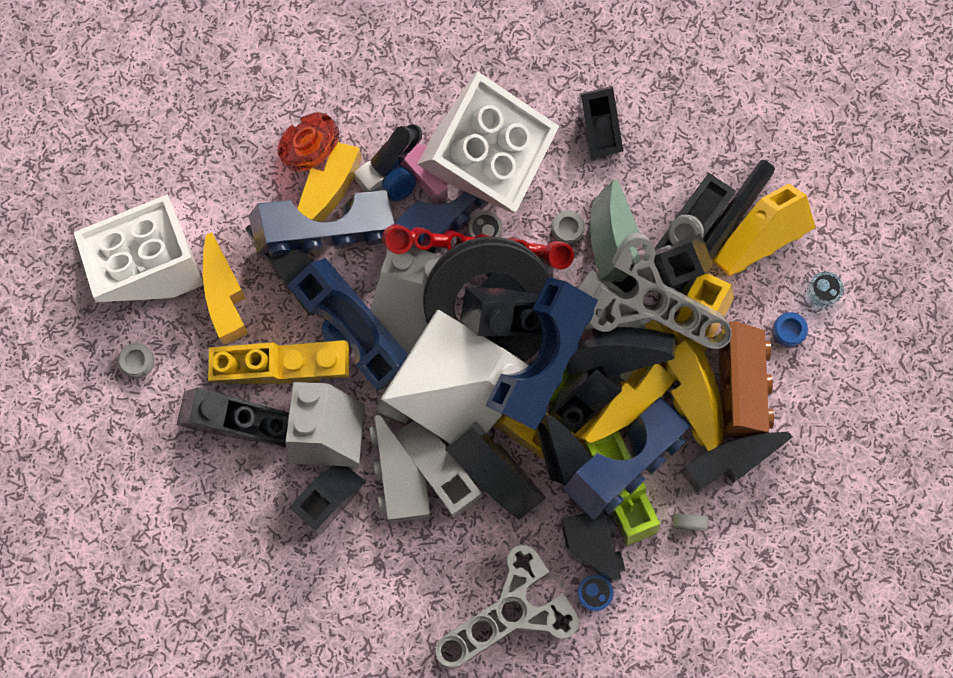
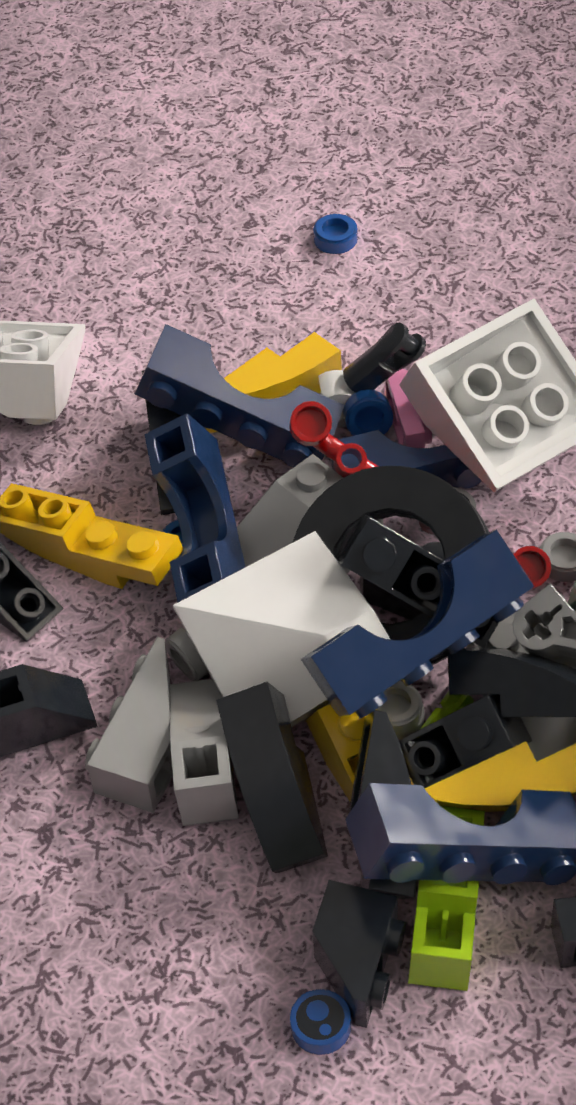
camera: 35 degrees right, 25 degrees down
(221, 293) = (70, 434): yellow slope -> none
(288, 39) = (335, 233): none -> blue tile
(308, 142) = (280, 328): clear red tile -> none
(324, 426) = (83, 622): light grey slope -> none
(514, 591) = (202, 1002): light grey beam -> none
(690, 522) = (523, 990): light grey tile -> none

